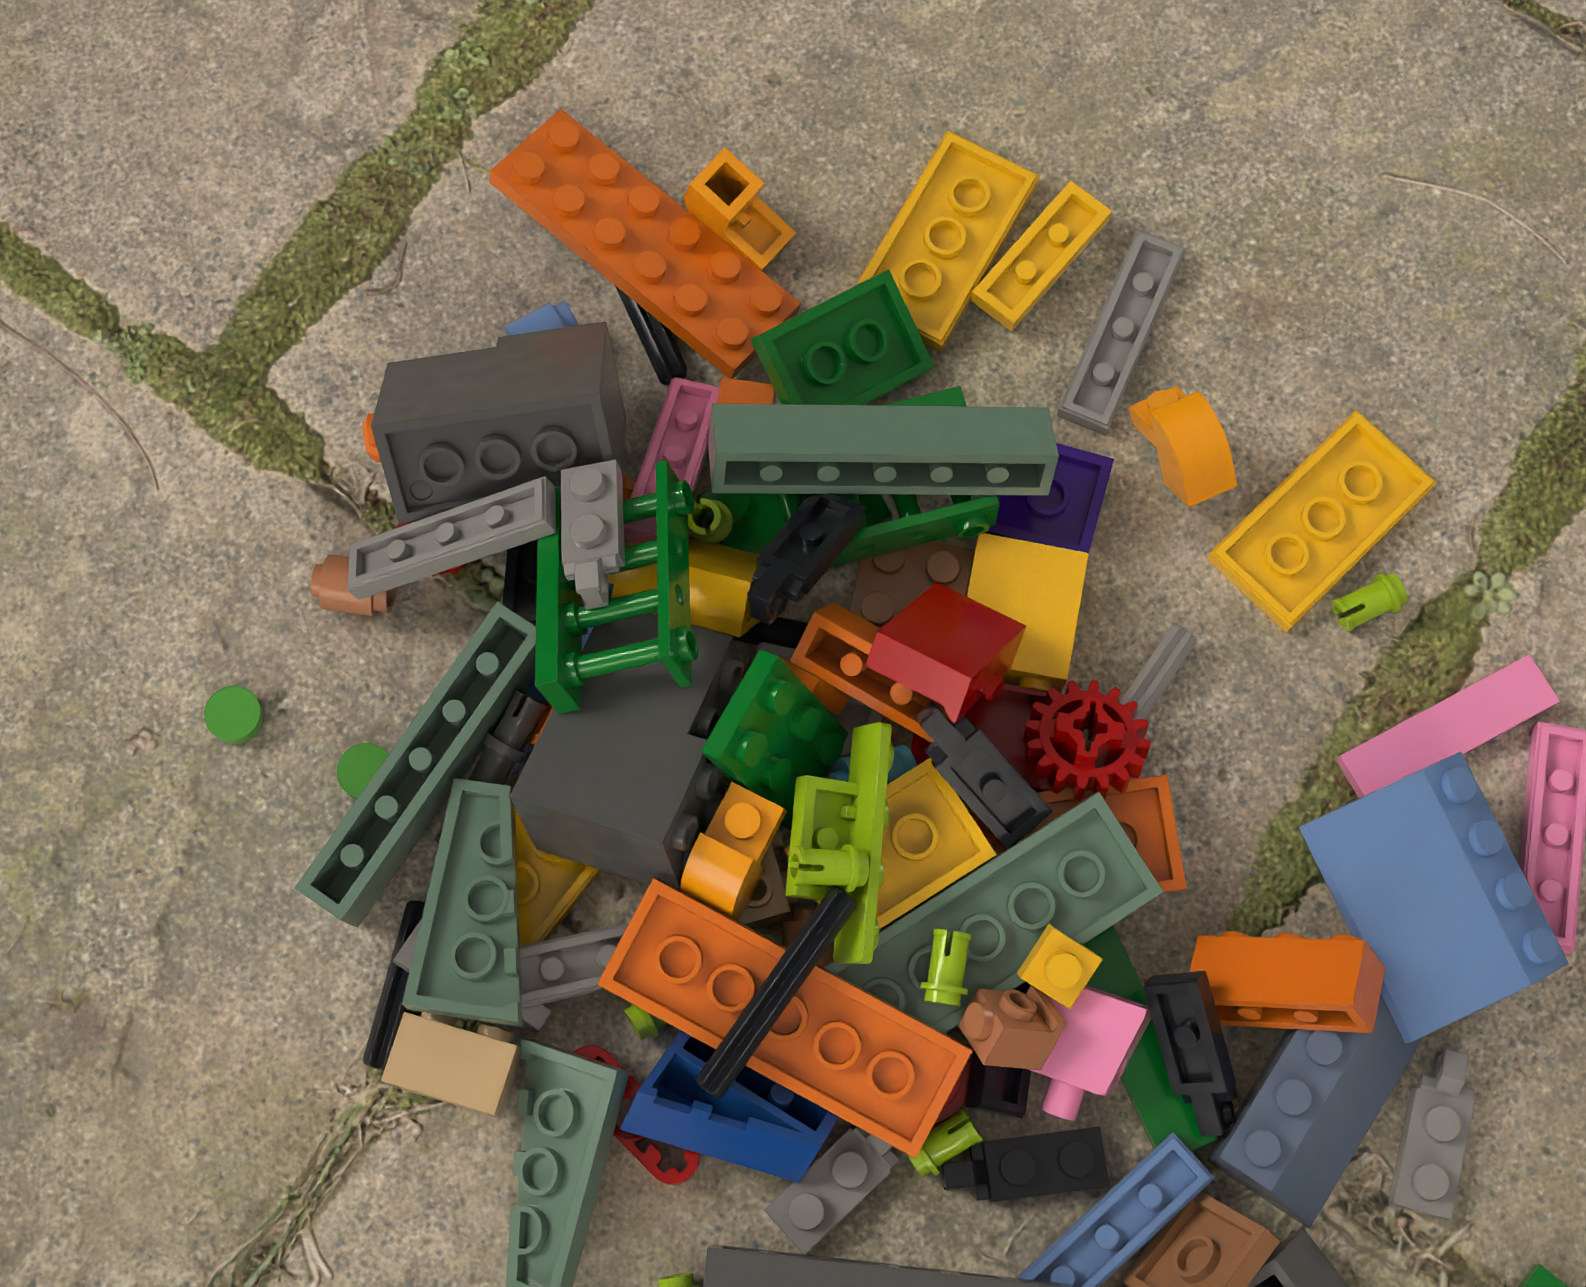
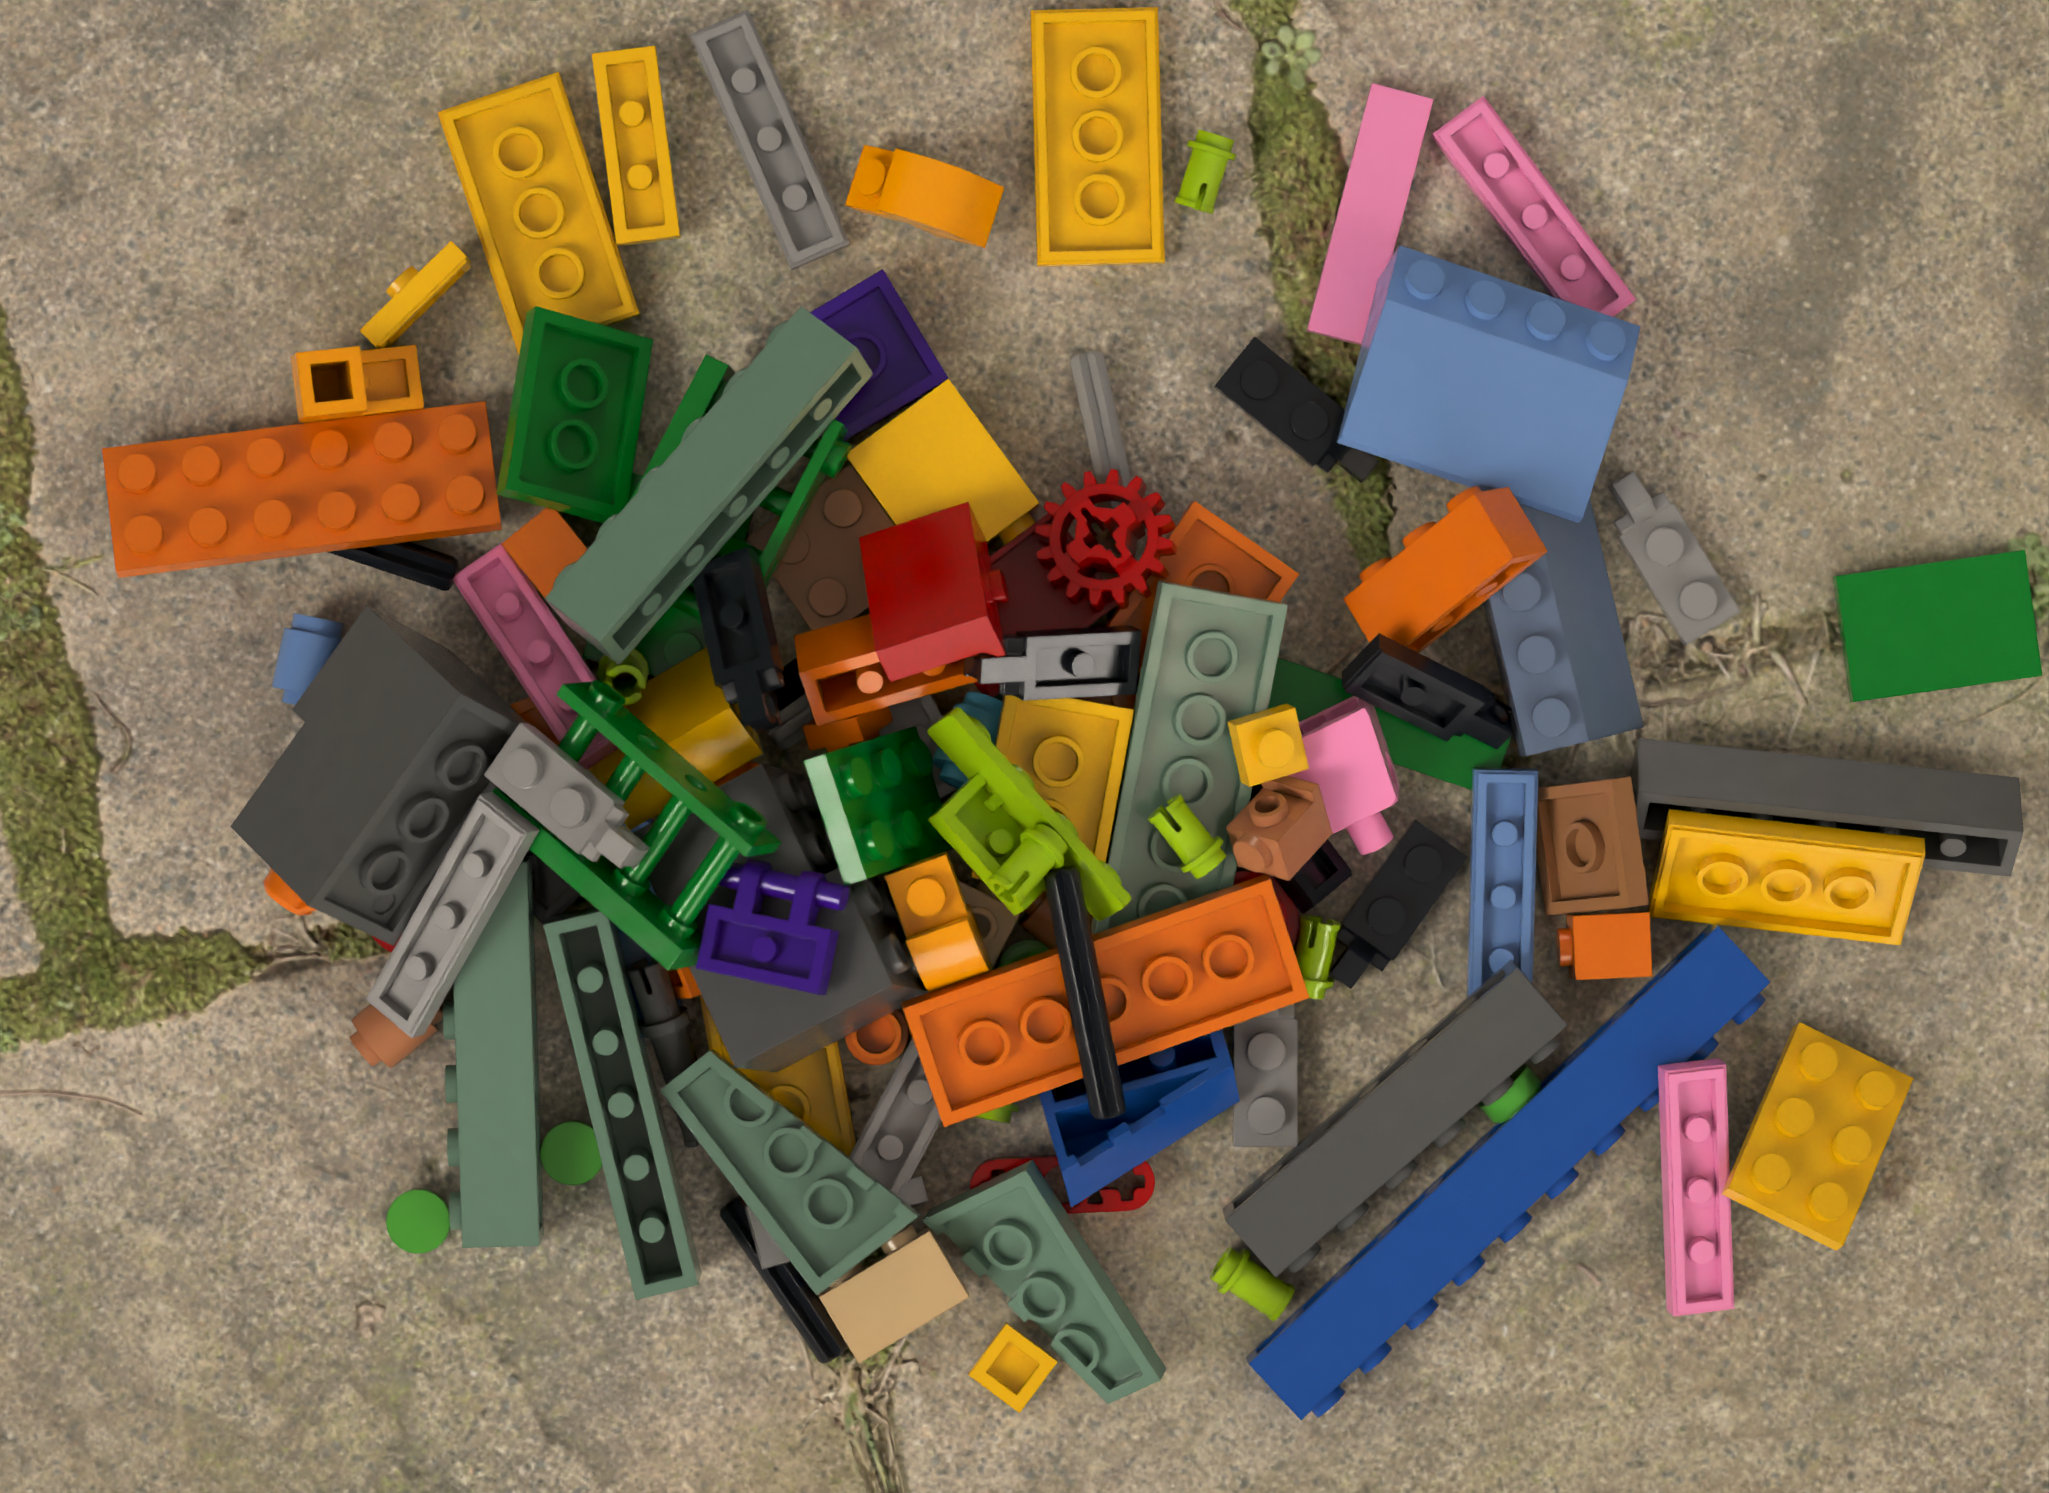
camera: 45 degrees left, 15 degrees up
(377, 670) = (497, 1080): none -> sand green brick
(473, 1197) = (1012, 1367): none -> yellow plate
(611, 741) = (770, 948): none -> dark purple plate
(618, 897) = (880, 1040): none -> orange plate
(827, 207) = (414, 294): none -> yellow plate
(1279, 797) = (1291, 410): none -> black hinge

